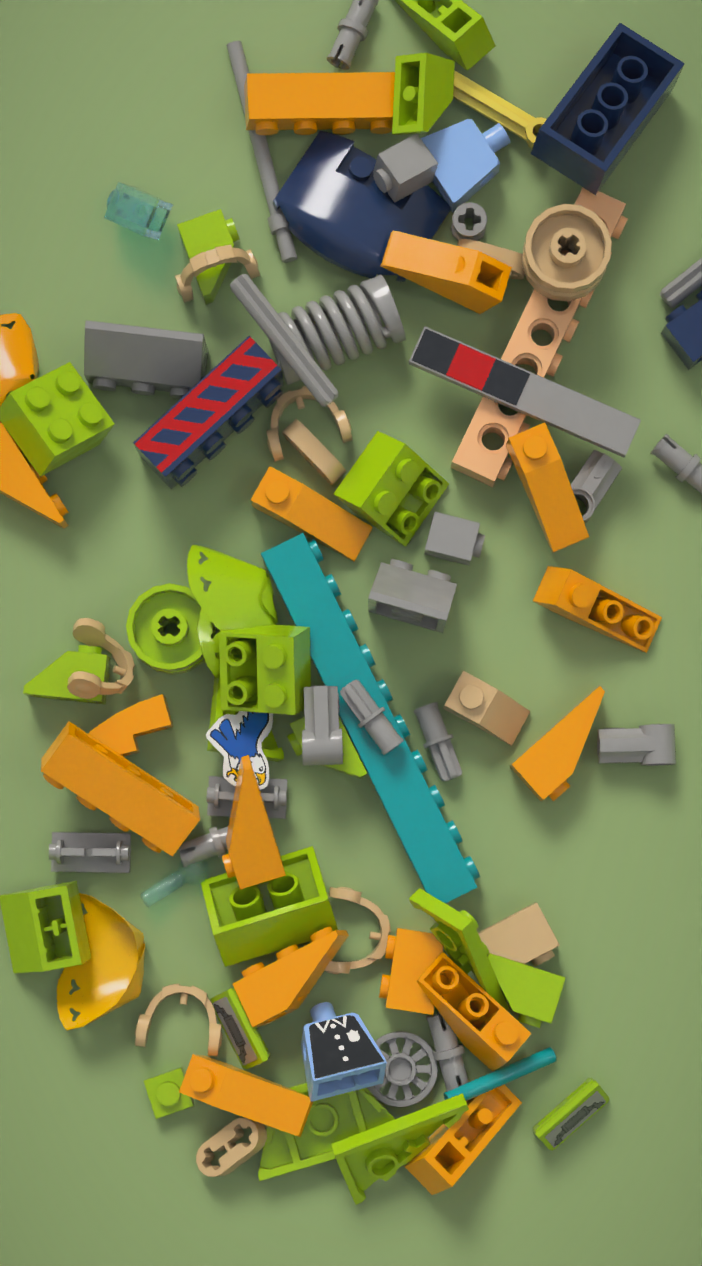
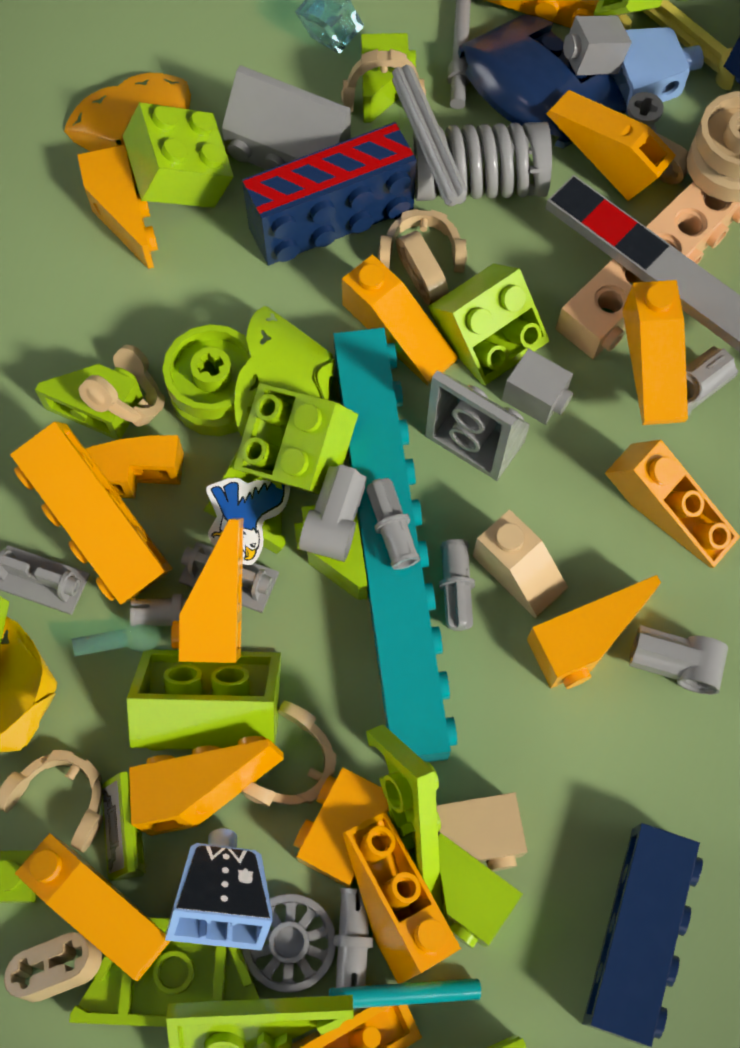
camera: 15 degrees right, 15 degrees down
(663, 974) = (642, 935): none -> dark blue brick

